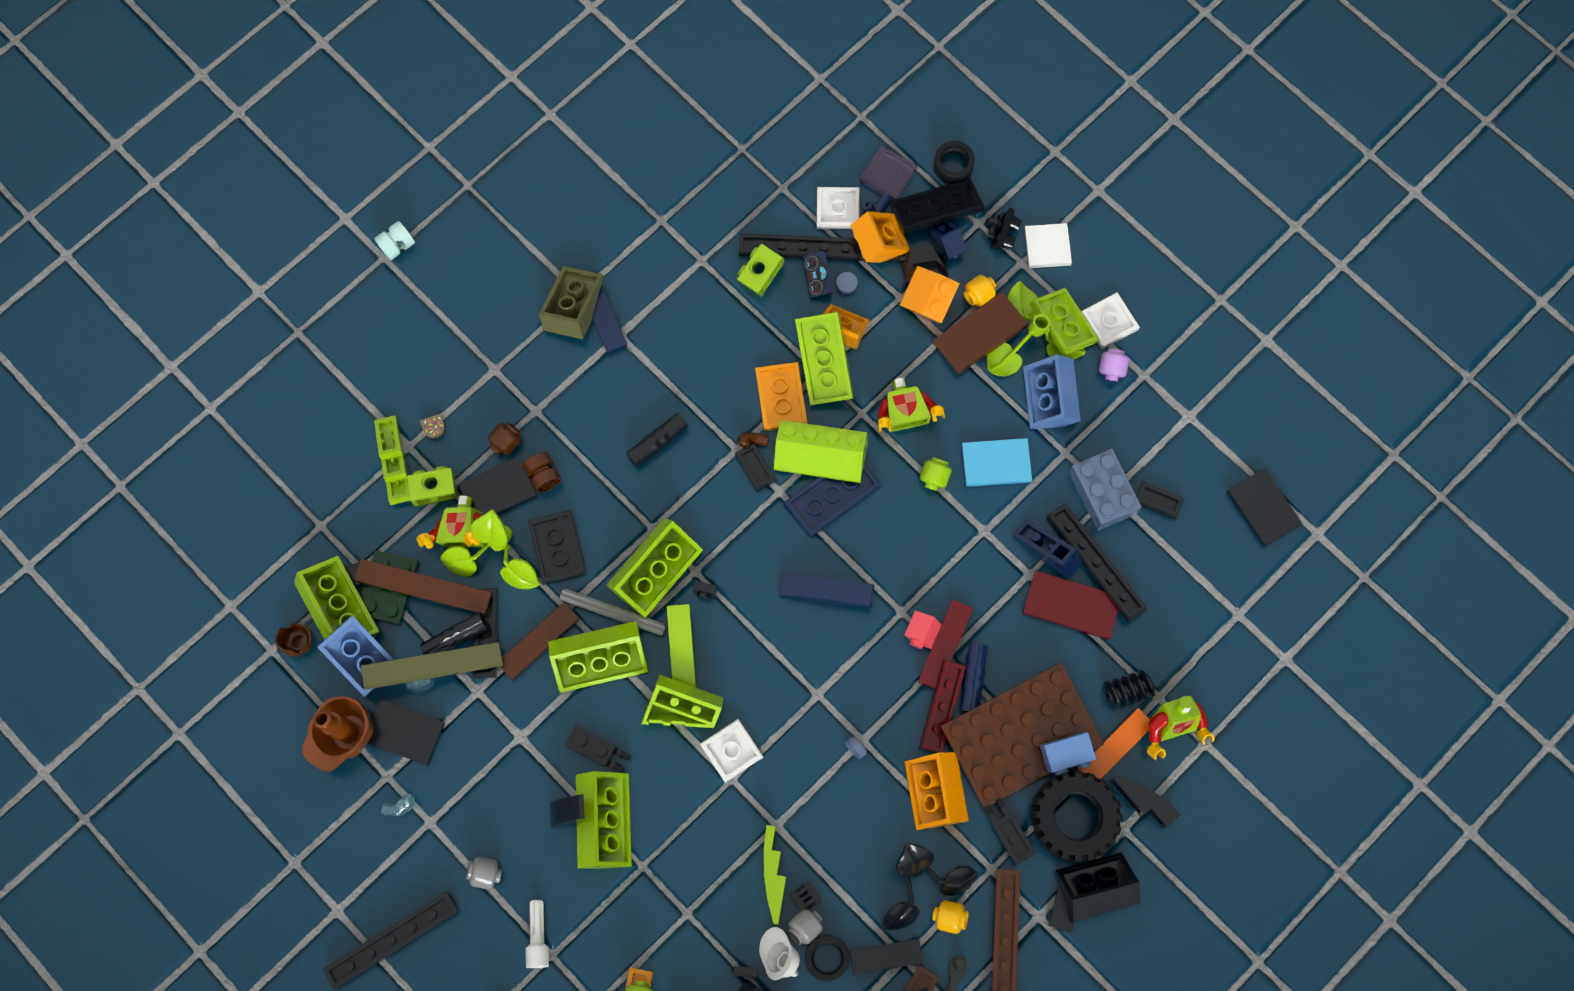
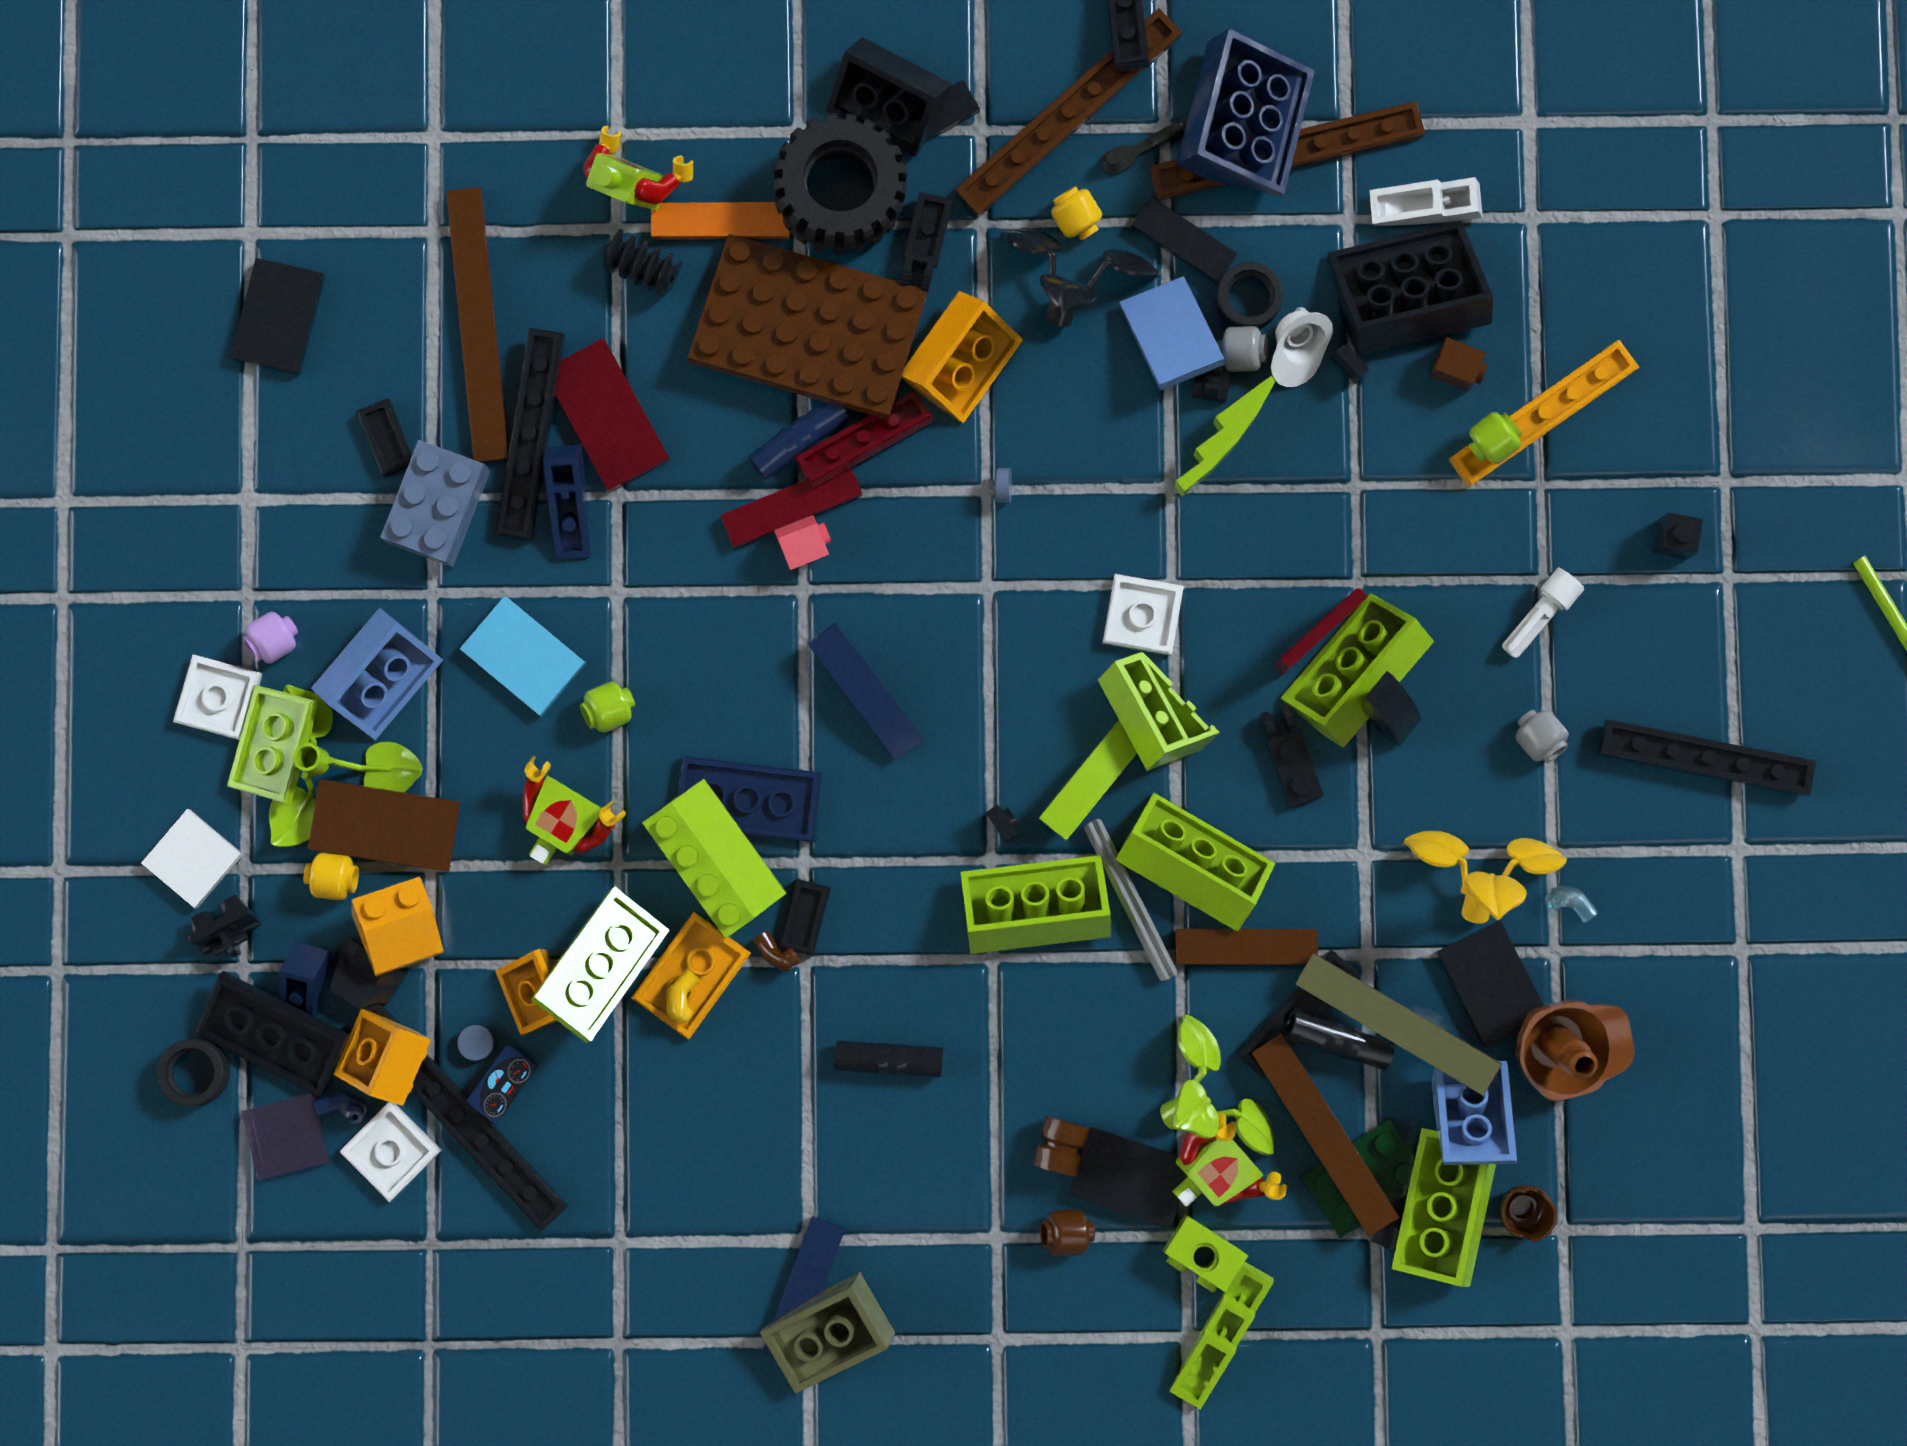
camera: 135 degrees left, 10 degrees up
(433, 426) = (1136, 1333): dark tan tile -> none
(440, 761) = (1483, 891): none -> yellow plant
(557, 547) = (1124, 1040): black tile -> none
(637, 818) = (1319, 631): none -> dark red tile
(759, 282) = (542, 1151): lime brick -> none
(777, 378) = (677, 997): none -> yellow arm
(846, 900) = (1172, 333): none -> medium blue tile
(1068, 752) = (780, 255): medium blue brick -> none
(1145, 800) = (746, 131): black slope -> none
(1173, 591) = (478, 325): none -> reddish brown tile

